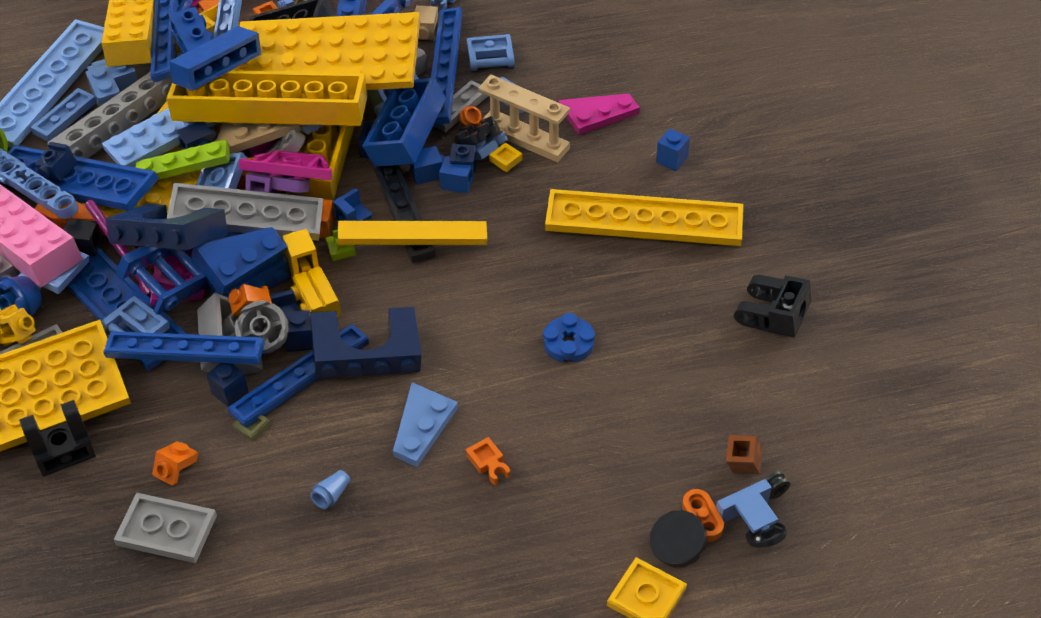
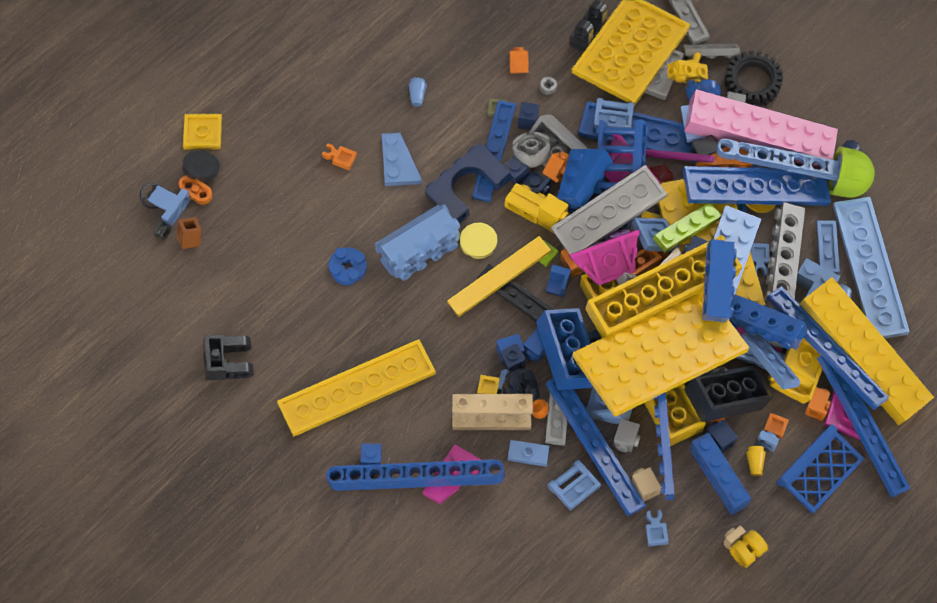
camera: 145 degrees right, 15 degrees up
(56, 162) = (770, 180): dark blue brick -> none
(151, 228) = (615, 148): dark blue arch -> none
(165, 527) = (489, 24): light grey plate -> none
(169, 422) = (551, 81): none -> light grey bush
(184, 347) = (562, 105): blue tile -> none
(400, 290) = (478, 240): none -> light yellow tile
(458, 304) = (417, 241): none -> medium blue brick
(639, 108) = (406, 470): none -> blue beam

